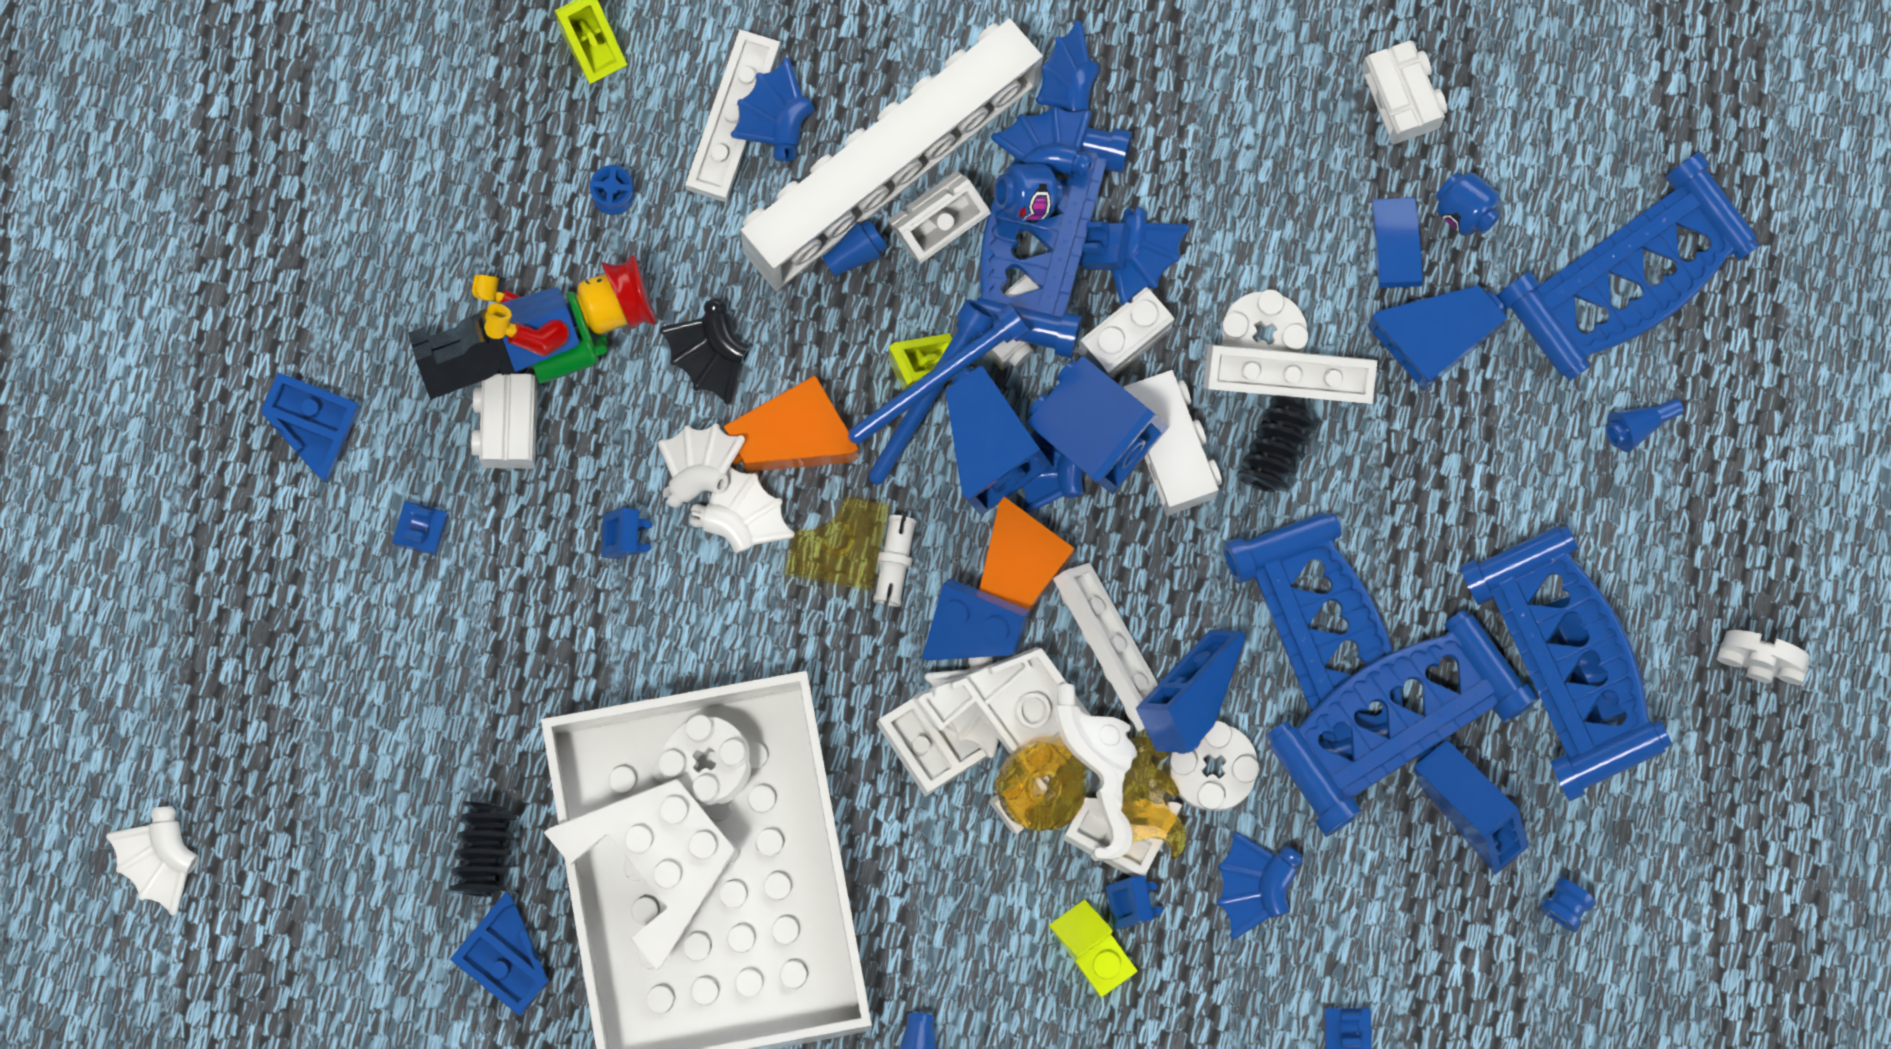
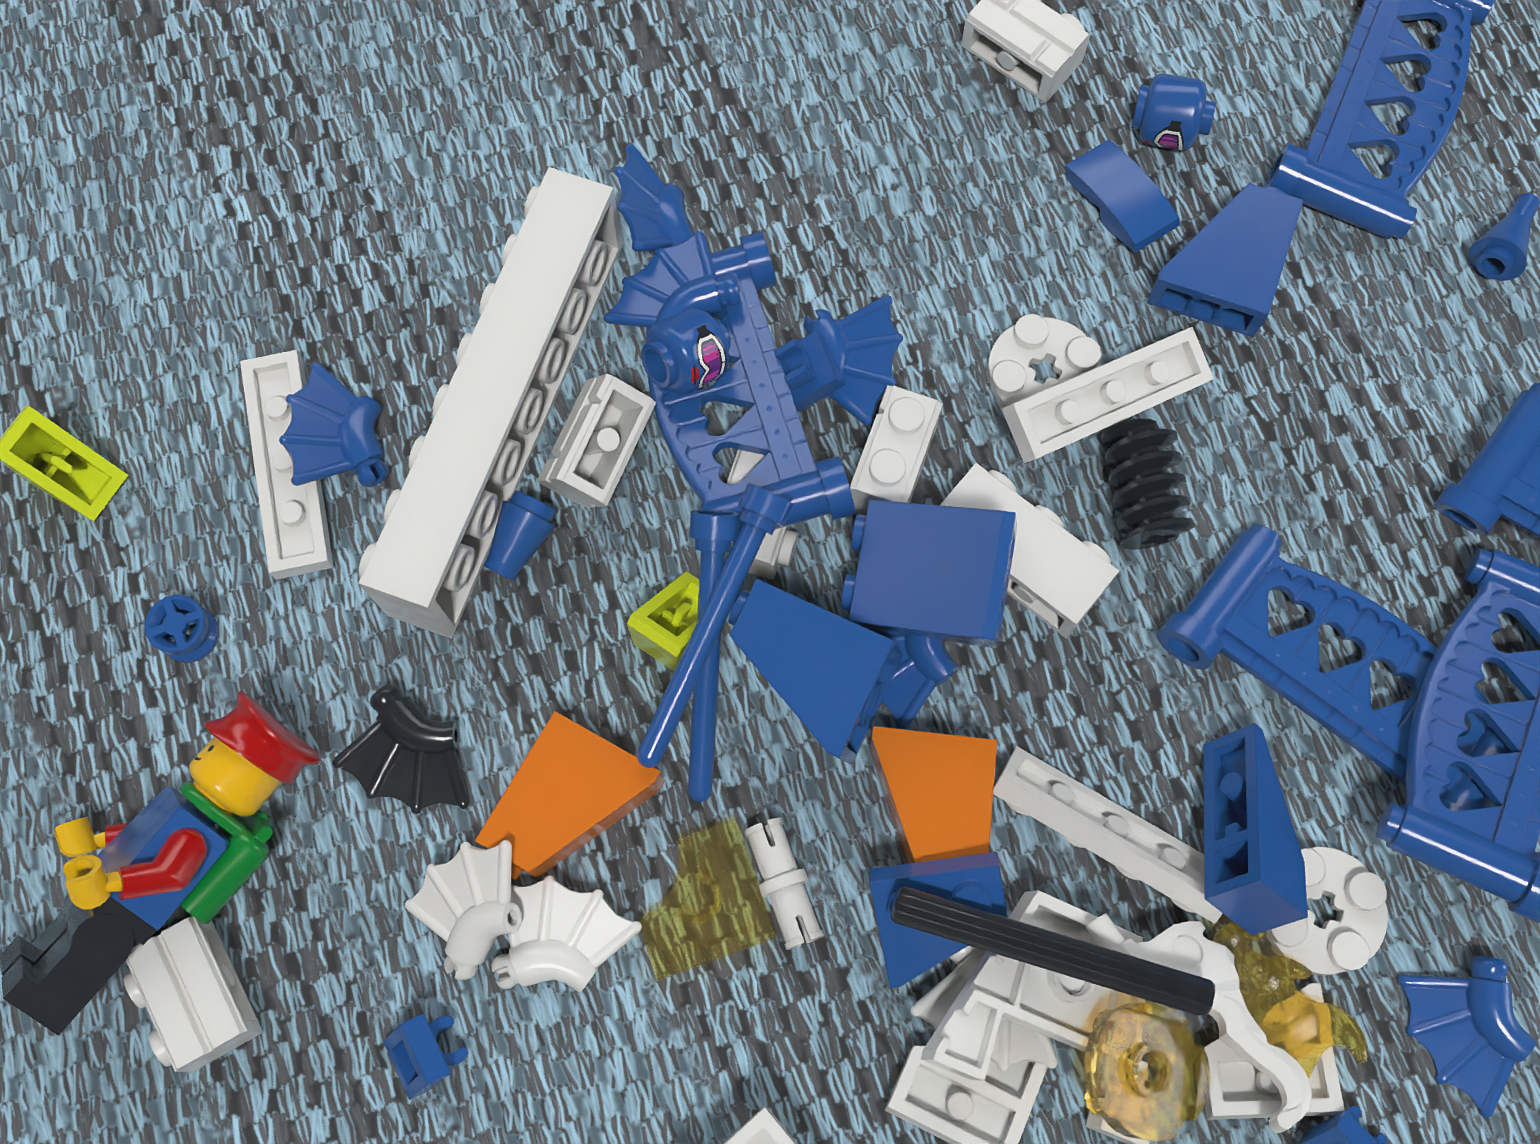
camera: 25 degrees left, 5 degrees down
(1024, 682) = (1053, 951): none -> black axle

